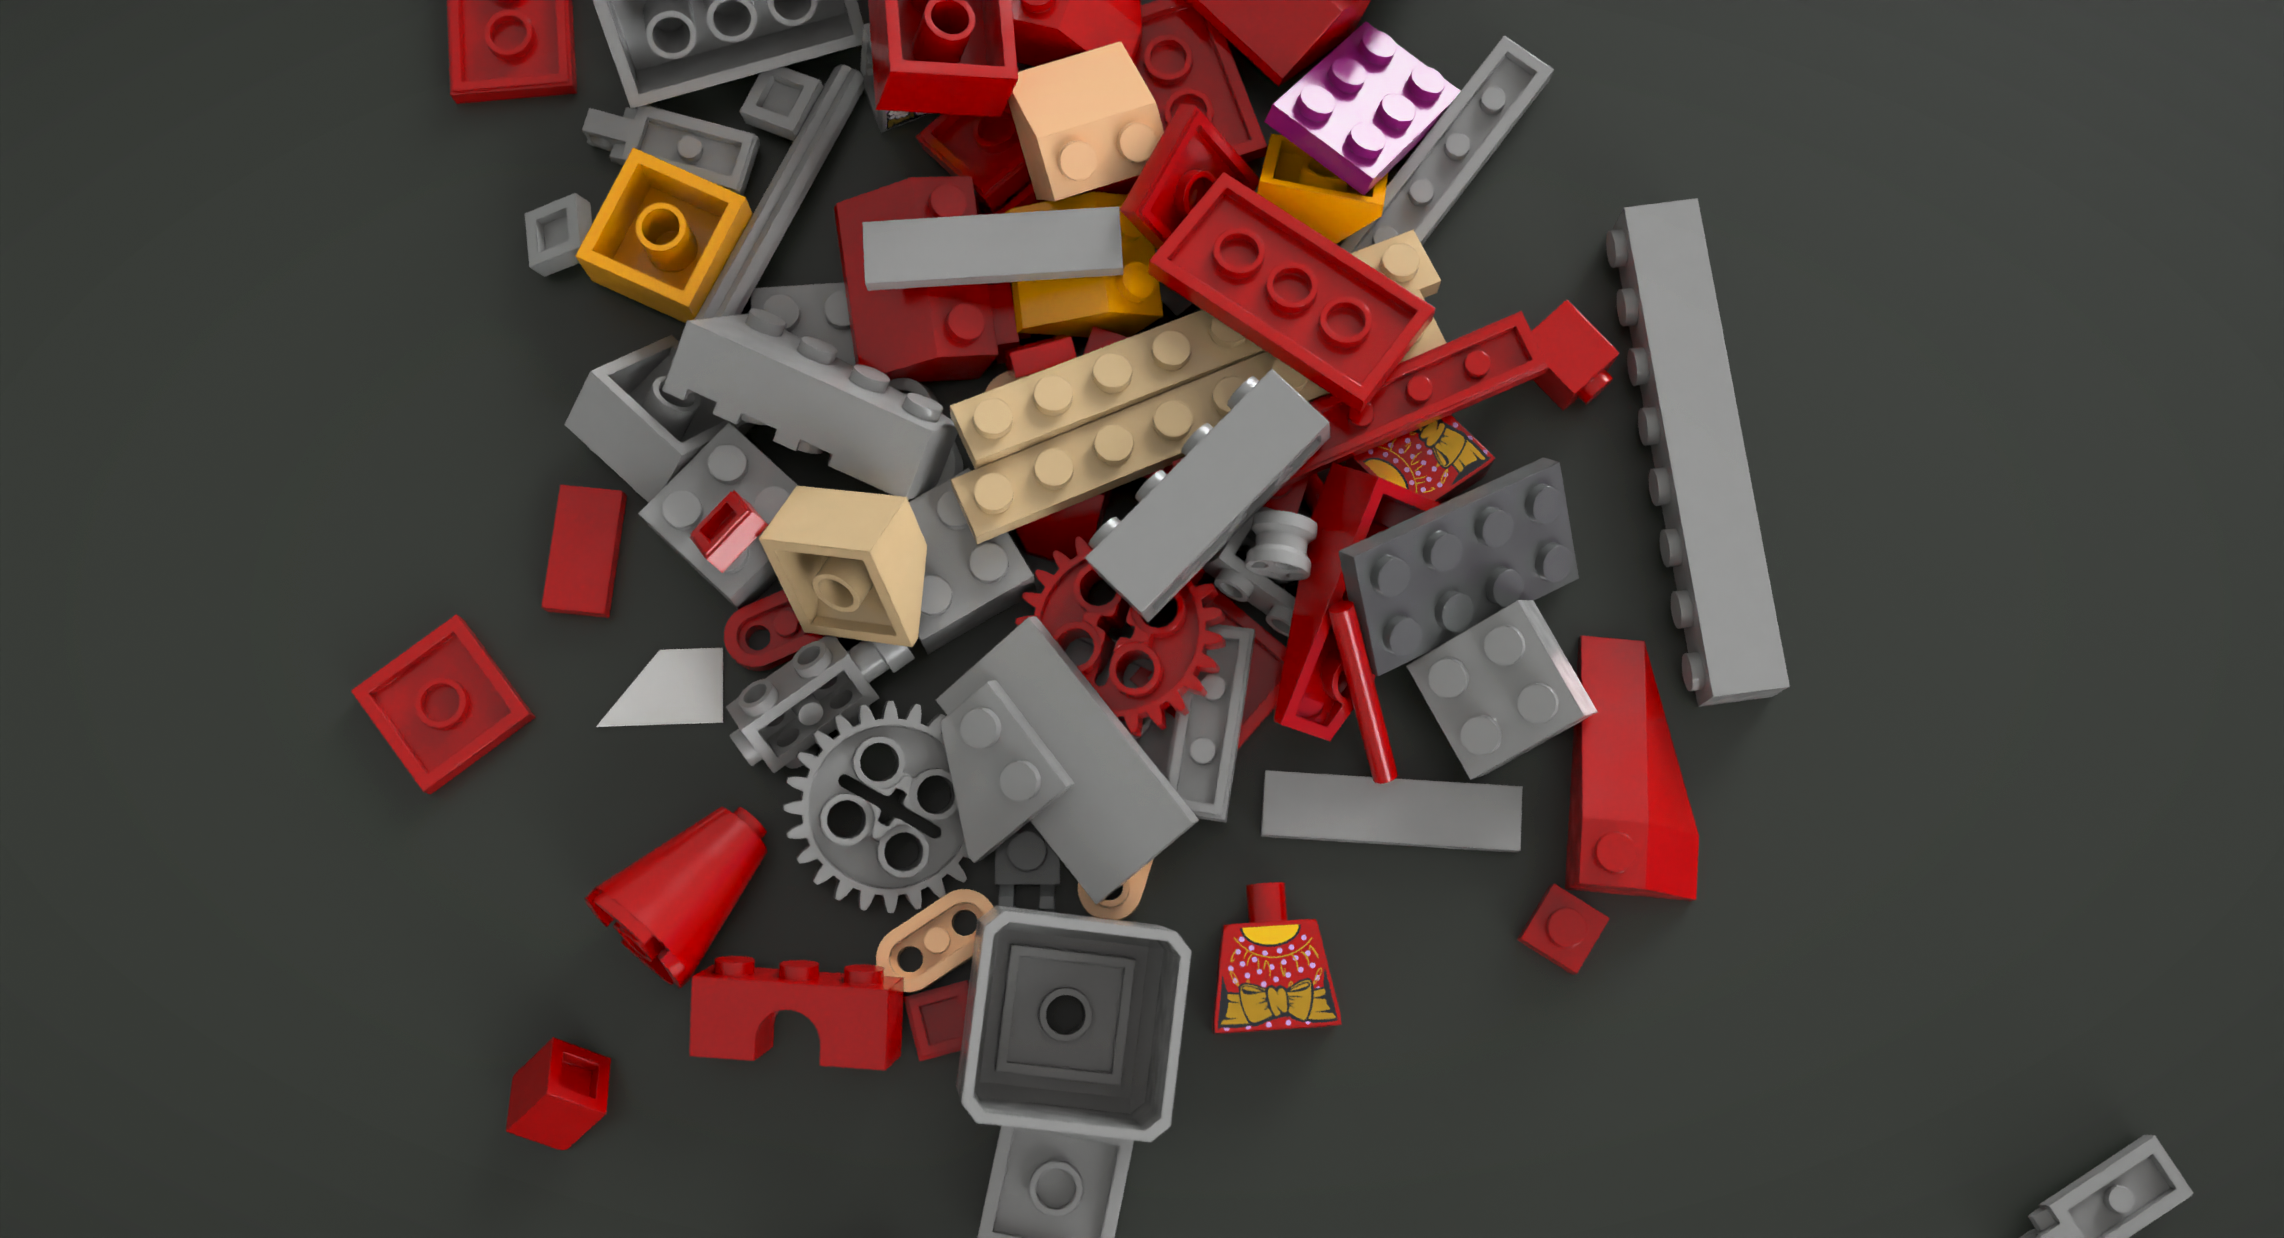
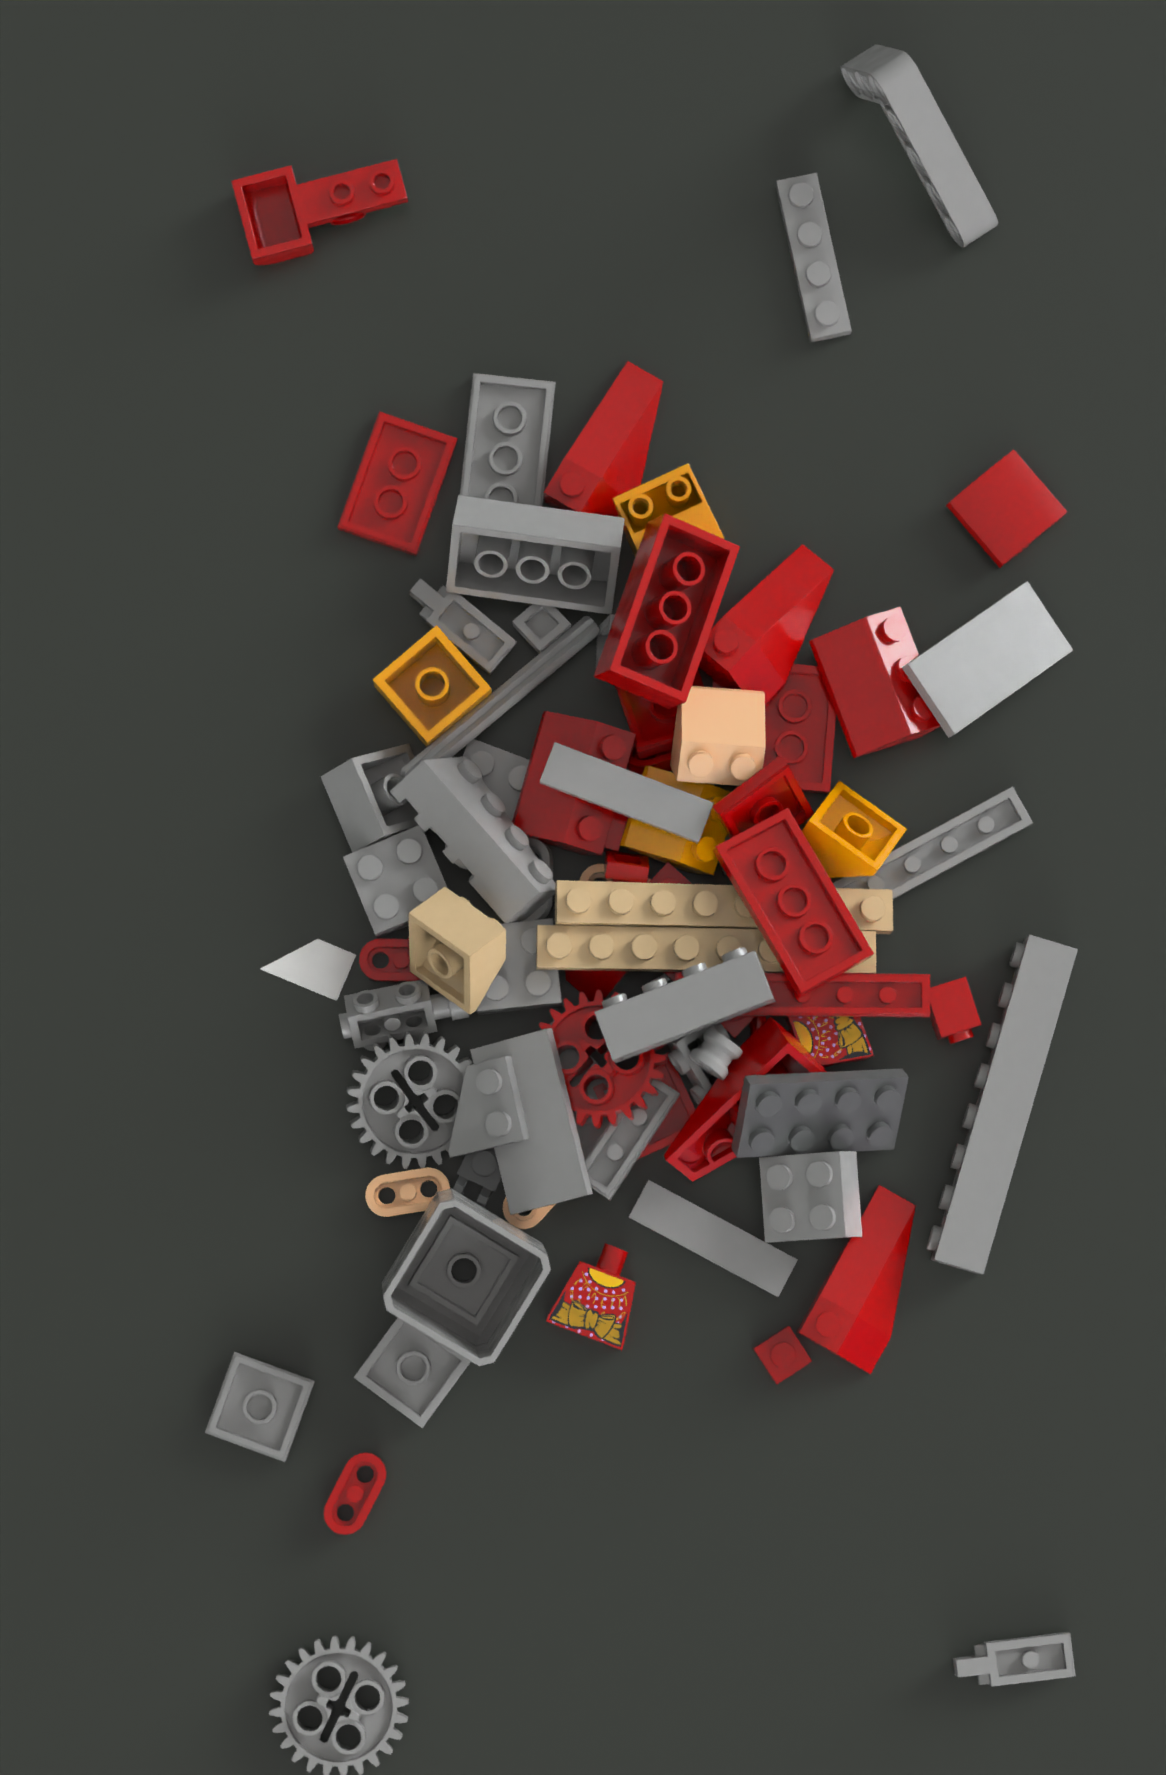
camera: 20 degrees right, 5 degrees up
(443, 704) = (174, 914): red tile -> none
(557, 233) = (367, 650): light grey plate -> none
(558, 1094) = (148, 1181): red panel -> none
(584, 551) = (298, 857): red tile -> none
(682, 892) = (271, 1096): red cone -> none
(728, 531) = (392, 897): red tile -> none
(852, 1010) = (340, 1211): red arch -> none
(938, 1019) = (388, 1238): red tile -> none
(1362, 107) = (900, 796): plate -> none
(1363, 691) = (724, 1162): red bar -> none

